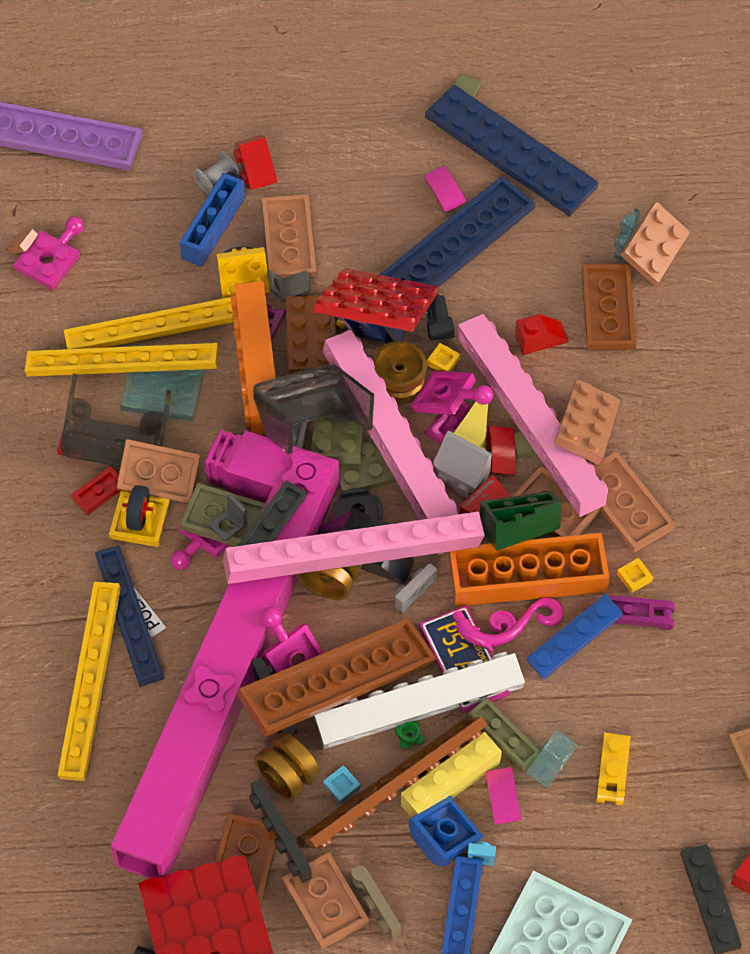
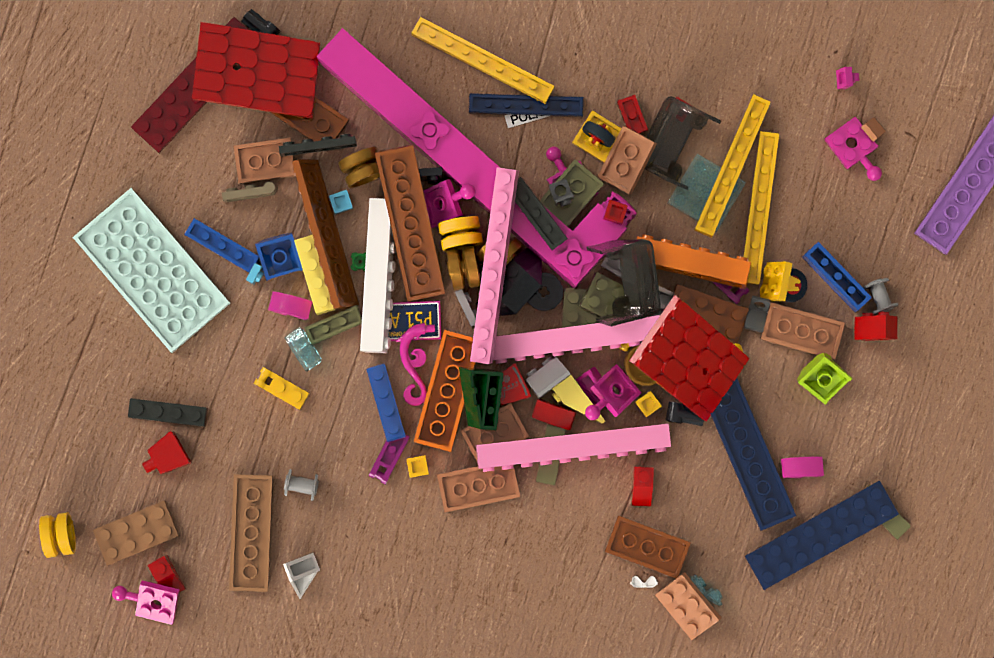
camera: 115 degrees right, 25 degrees up
(231, 444) = (615, 212): none -> red plate
(327, 619) = (460, 232): none -> yellow wheel
(333, 197) = (823, 377): none -> lime slope
(367, 602) = (463, 267): none -> pearl gold wheel
(587, 421) = (547, 483): nougat plate -> none
(646, 294) = (650, 582): none -> white piece
(726, 705) = (301, 485): none -> light grey hose

